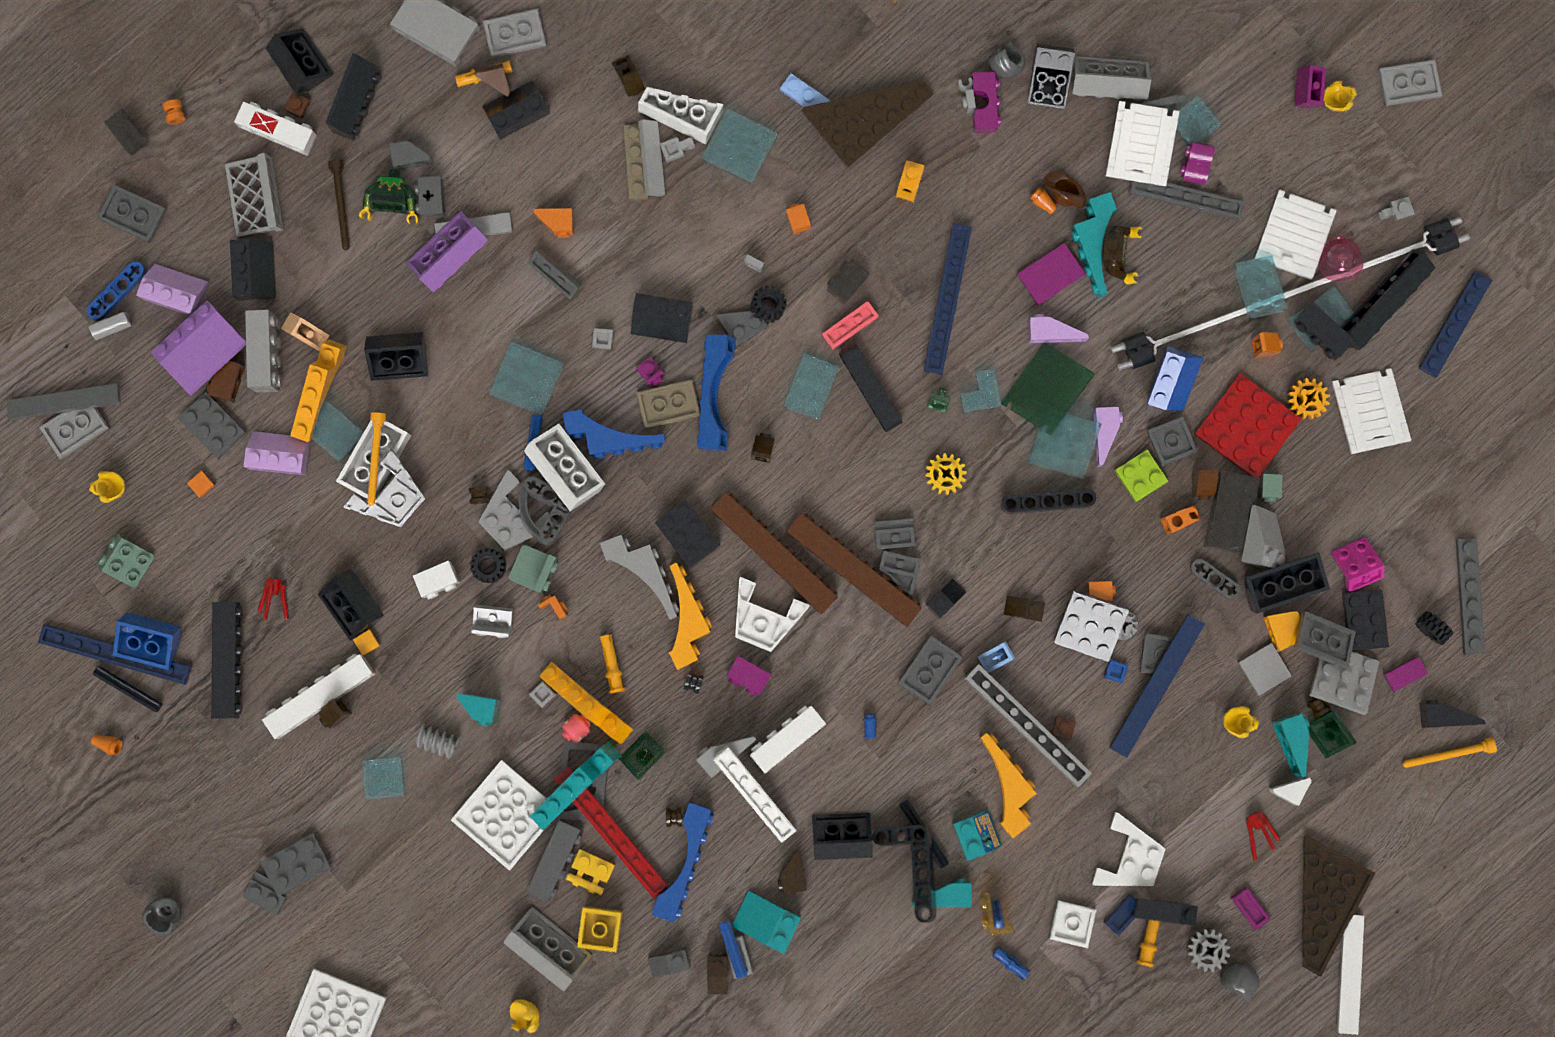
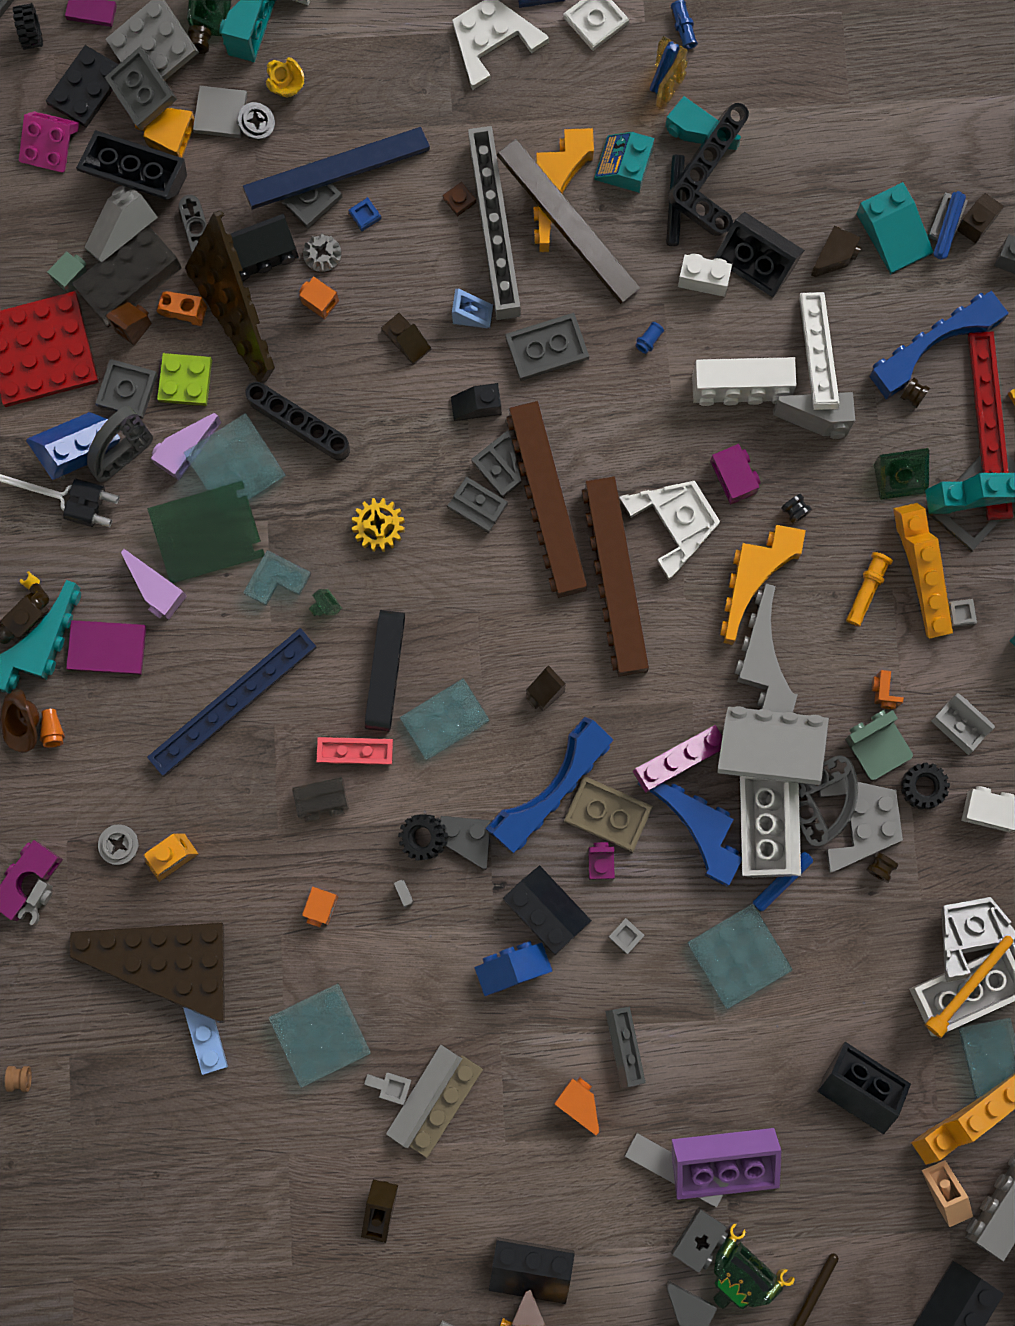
camera: 140 degrees left, 5 degrees down
(575, 728) = (954, 551): coral head -> none
(596, 514) = (773, 745): none -> light grey slope
(648, 468) = (679, 759): none -> plate
(654, 267) = (512, 967): none -> blue brick
(681, 113) = (354, 1120): white wedge -> none
(687, 534) = (691, 660): black brick -> none
(865, 794) = (705, 274): none -> white brick
(952, 158) = (106, 847): none -> light grey gear
(980, 761) = (568, 221): none -> tile
(1091, 625) = (353, 270): plate -> none
(1145, 398) = (136, 440): none -> dark grey beam
(1162, 591) = (264, 246): none -> black slope
(1170, 551) = (216, 274): none -> dark brown wing
(1236, 688) = (262, 114): none -> gear

